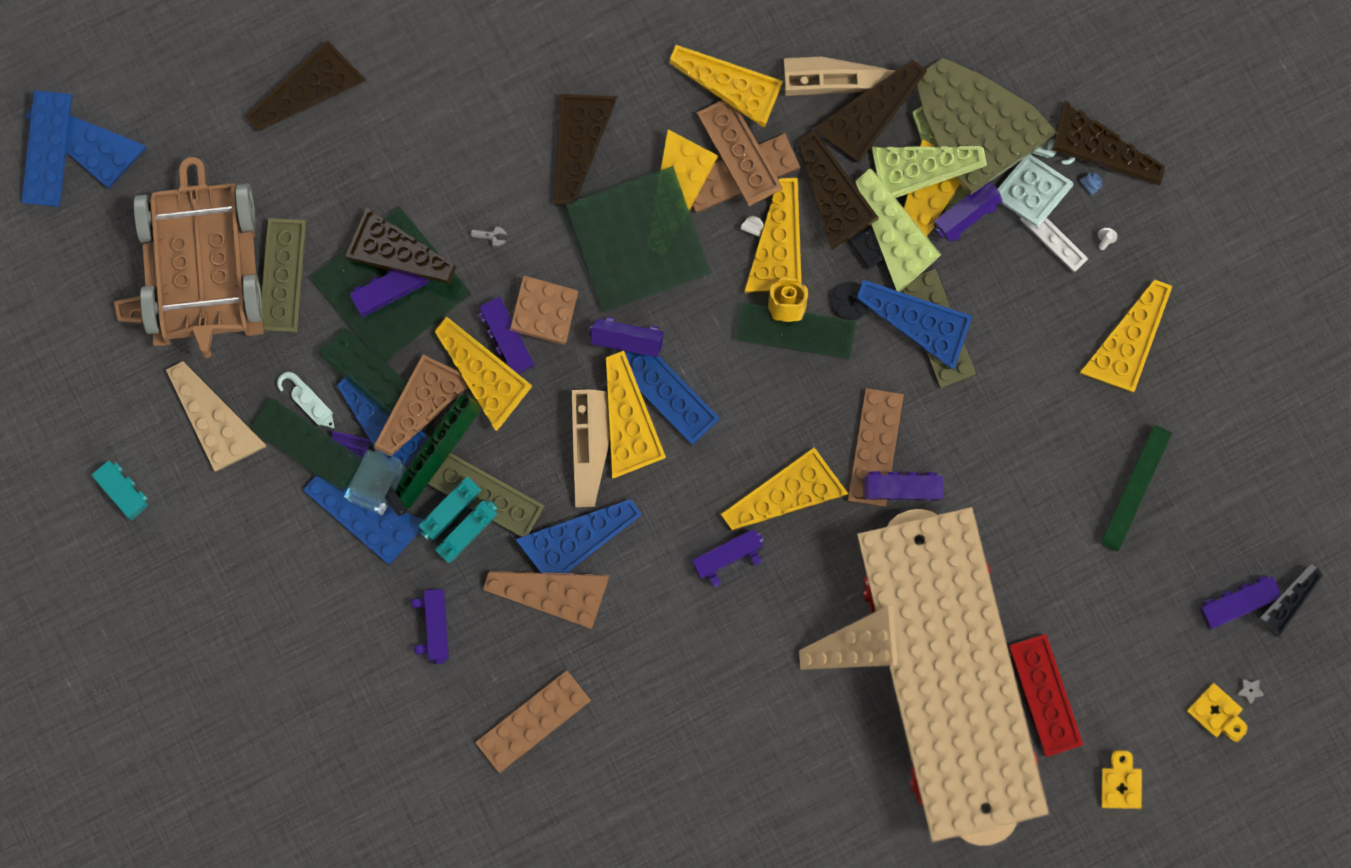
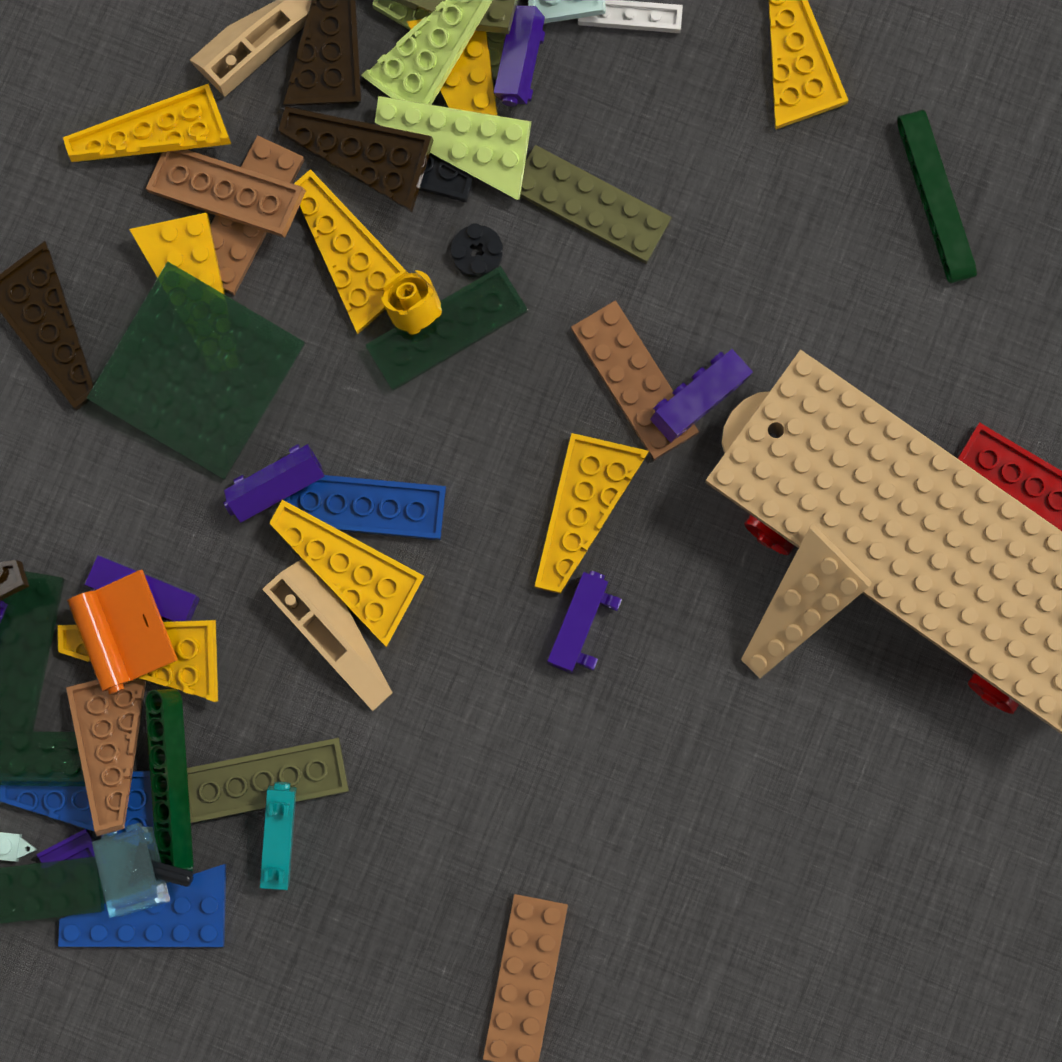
camera: 45 degrees left, 0 degrees up
(436, 626) = (331, 969): dark purple brick -> none
(450, 508) = (238, 829): teal brick -> none
(474, 349) = (122, 631): none -> orange door
(490, 235) = (33, 500): light grey bar -> none
(544, 310) = (159, 529): medium nougat plate -> none
(559, 594) = (434, 820): medium nougat wing -> none
(569, 543) = (399, 757): blue wing -> none
(753, 225) = (306, 256): white plate -> none
(928, 324) = (580, 205): blue wing -> none

